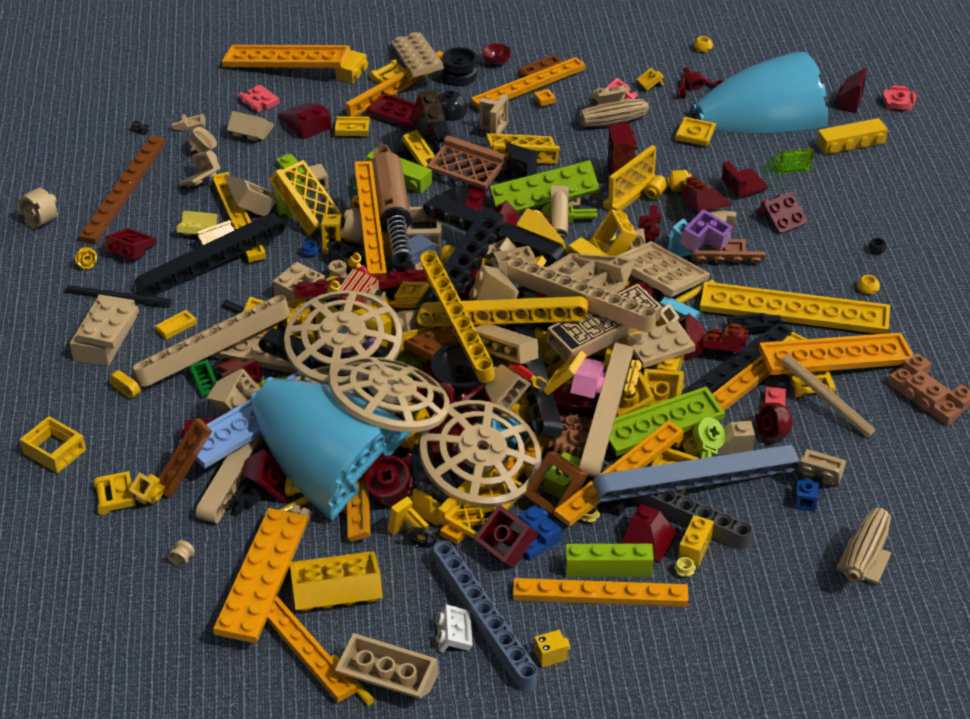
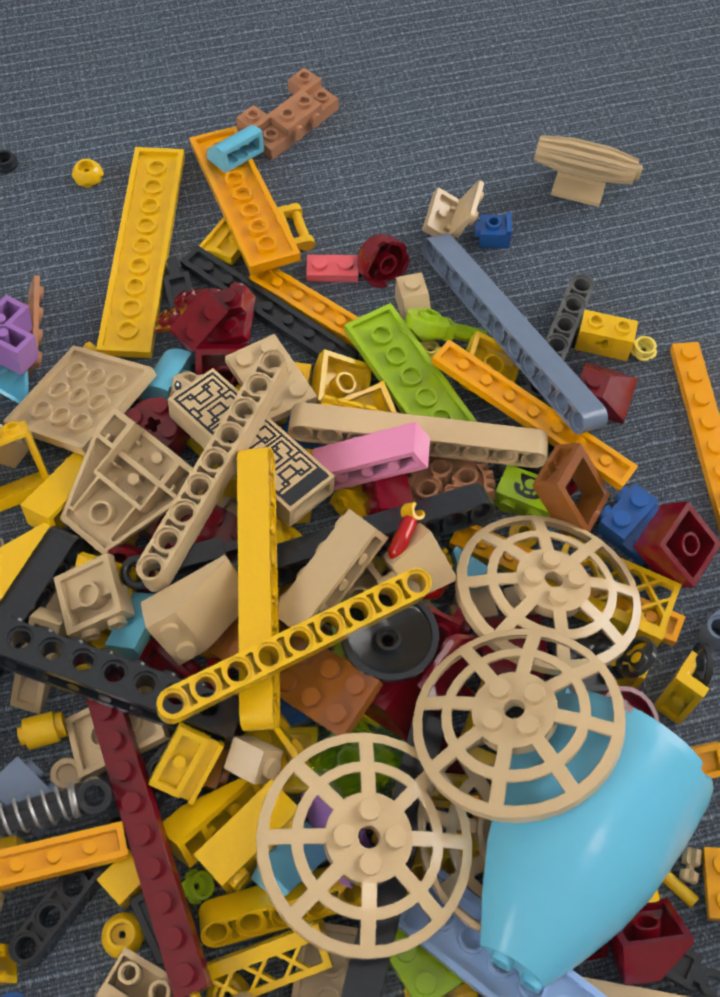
camera: 100 degrees left, 20 degrees up
(338, 268) = (88, 936): tan wheel -> none
(358, 280) = (209, 847): torso -> none
(565, 372) = (390, 475): yellow plate -> none
(609, 560) = (667, 427): lime brick -> none
(716, 313) = (191, 317): none -> dark red bracket
(827, 395) = (325, 204): tan axle -> none
(880, 348) = (237, 148): none -> medium azure brick

